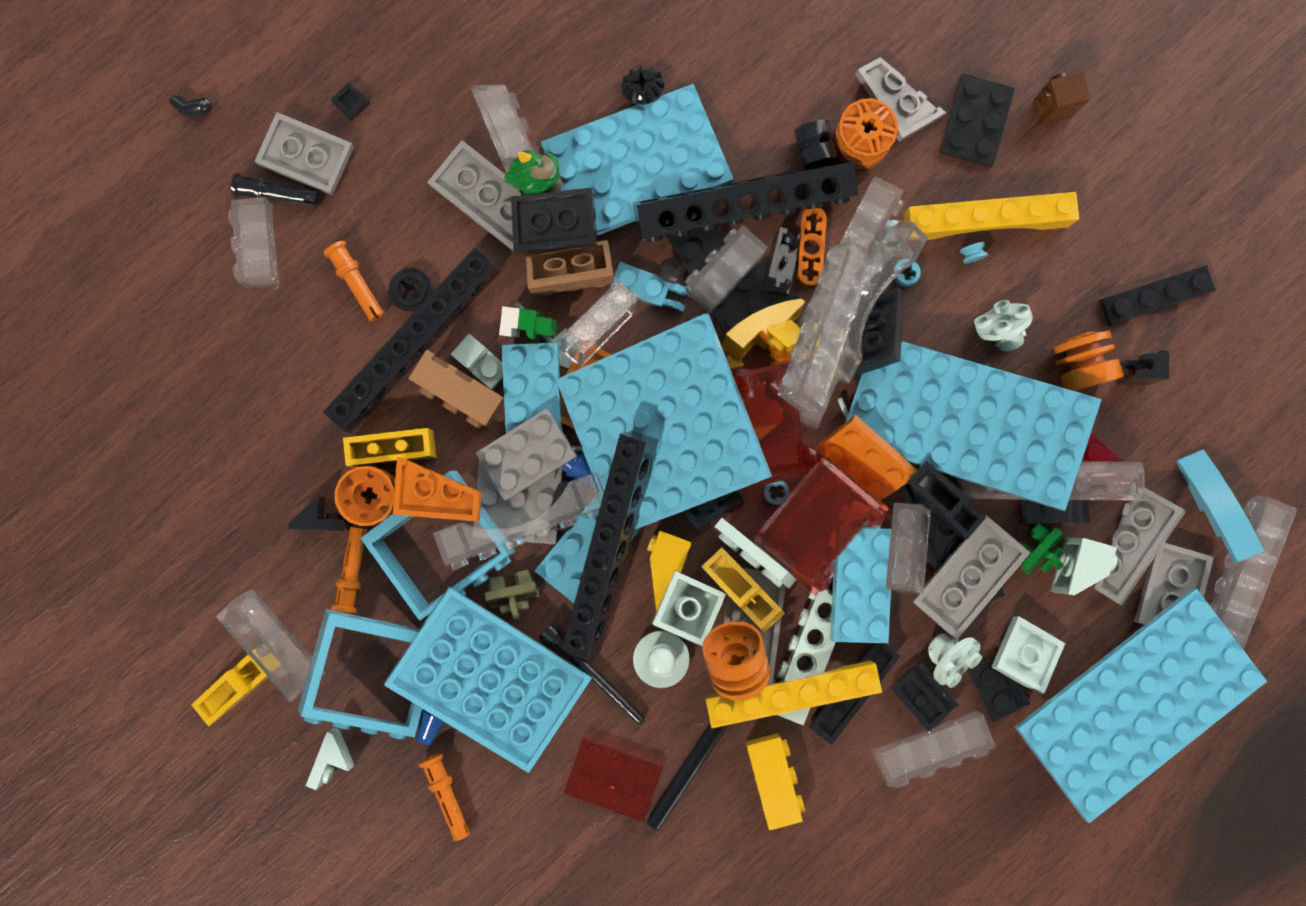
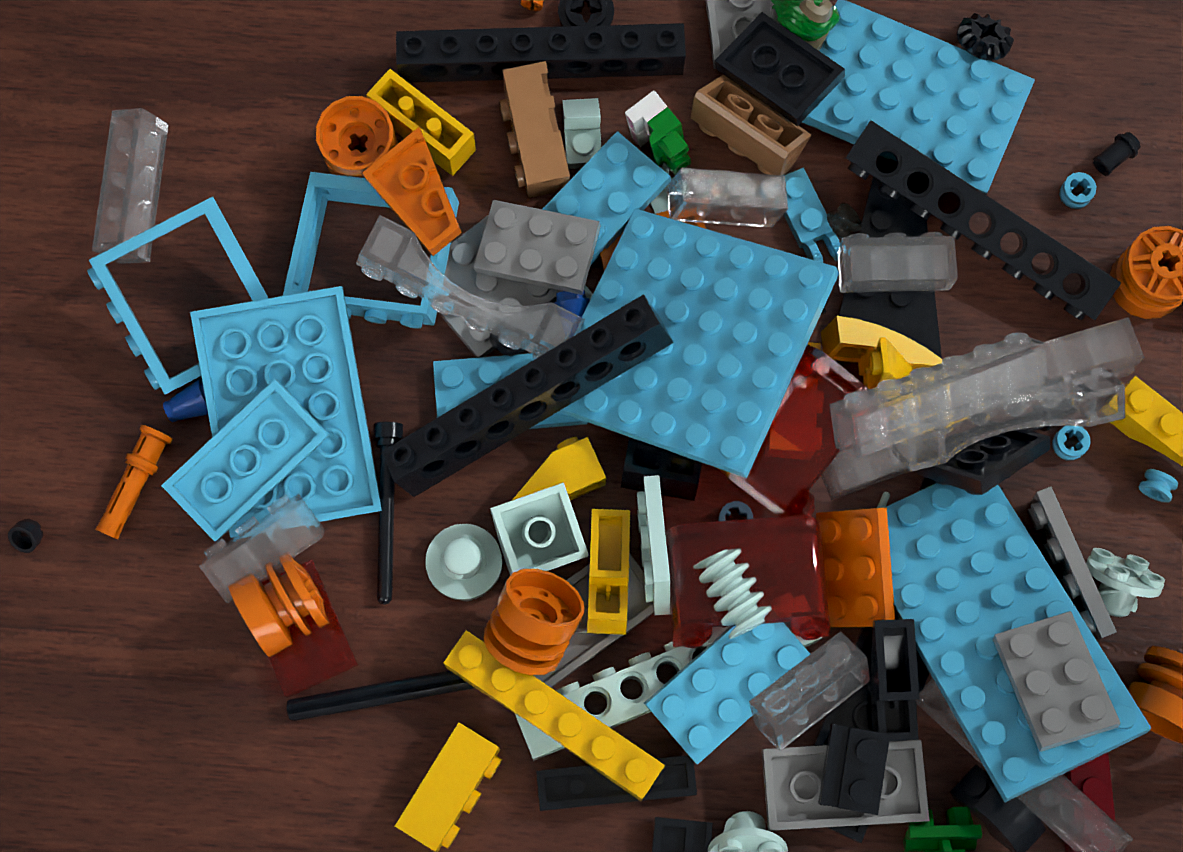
camera: 40 degrees right, 10 degrees down
(229, 690) = (52, 191): yellow slope -> none
(313, 518) = (289, 119): black slope -> none
(333, 753) = (77, 334): light aqua slope -> none
(348, 583) = (256, 205): orange pin -> none
(420, 881) = (29, 538): none -> black hinge
(497, 729) = (245, 460): none -> medium azure plate
(512, 598) = (389, 363): olive hips -> none
(552, 762) = (285, 529): none -> clear brick
(595, 792) = (278, 604): none -> orange wheel
(769, 122) = (1072, 182): none -> medium azure bush
(777, 83) = (1124, 147): none -> black pin
(781, 263) = (957, 312): black hinge -> none
(805, 226) = (1013, 306): orange beam -> none
(815, 142) = (1101, 236): black wheel -> none
(825, 542) = (733, 590): none -> light aqua piece
(969, 566) = (854, 769): none -> black plate
(981, 349) = (1064, 551): none -> light grey plate
(1032, 423) = (1056, 681): none -> light grey plate

